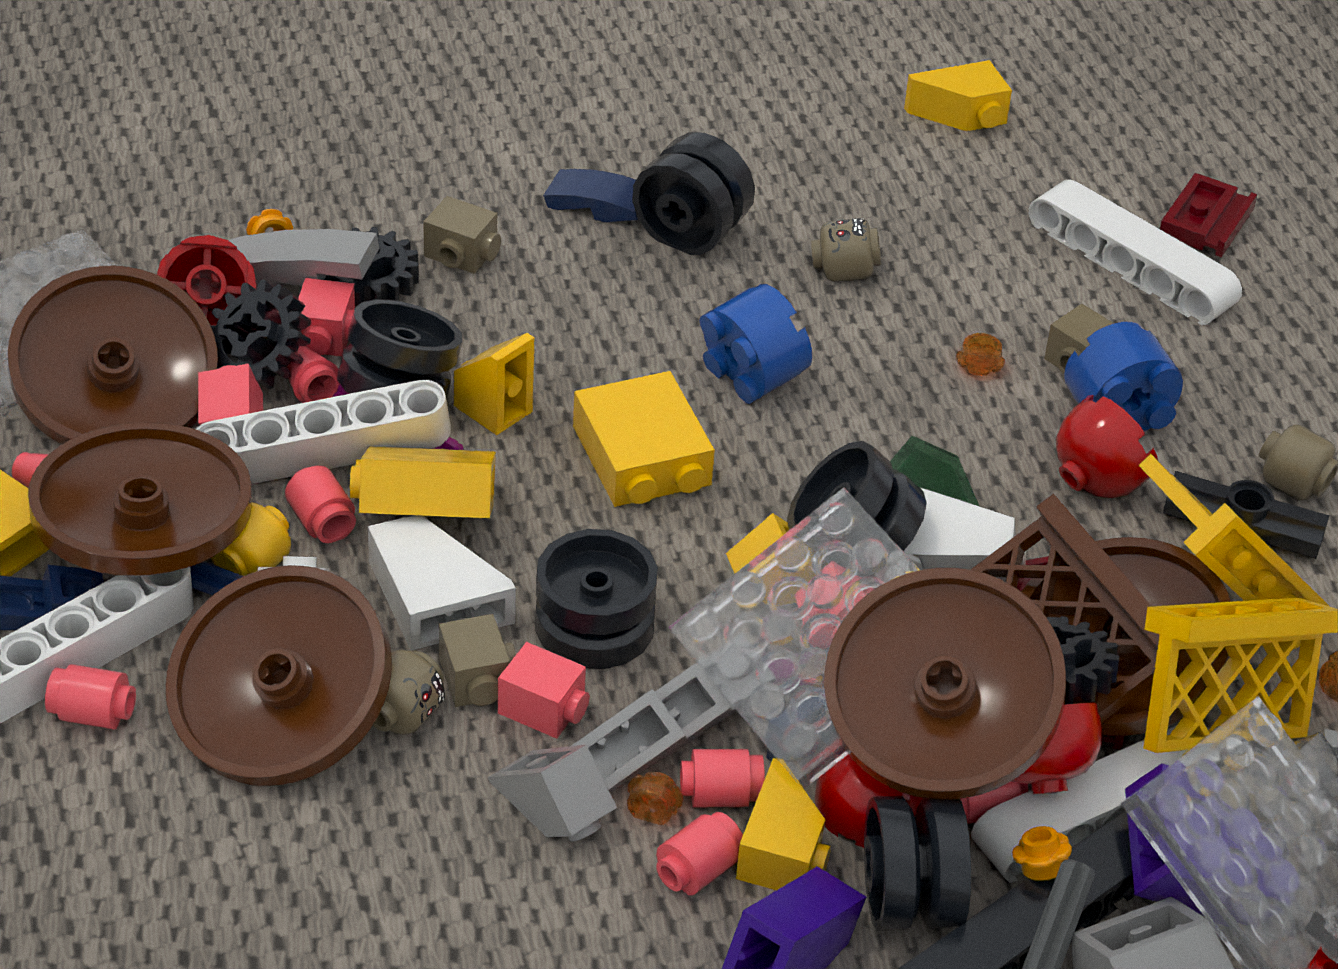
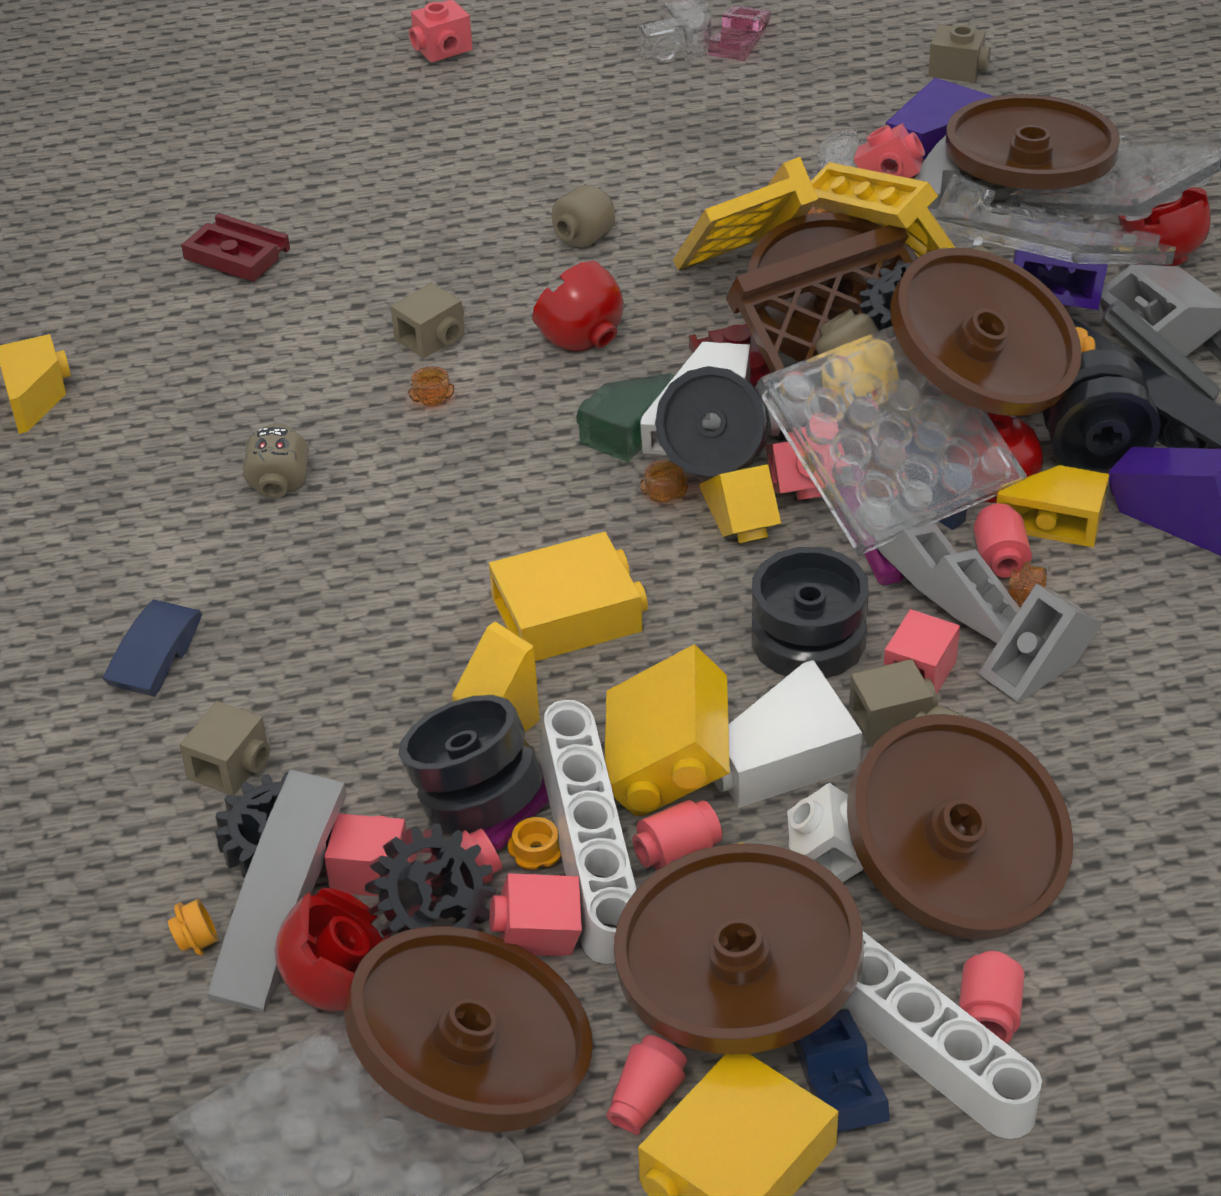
camera: 85 degrees left, 0 degrees up
(693, 193) = (201, 547): black wheel -> none
(699, 853) = (1090, 554): coral brick -> none
(755, 342) = (439, 508): blue brick -> none
(1129, 370) = (500, 286): blue brick -> none
(1136, 250) = (285, 288): white beam -> none
(1272, 520) = (645, 247): black piece -> none

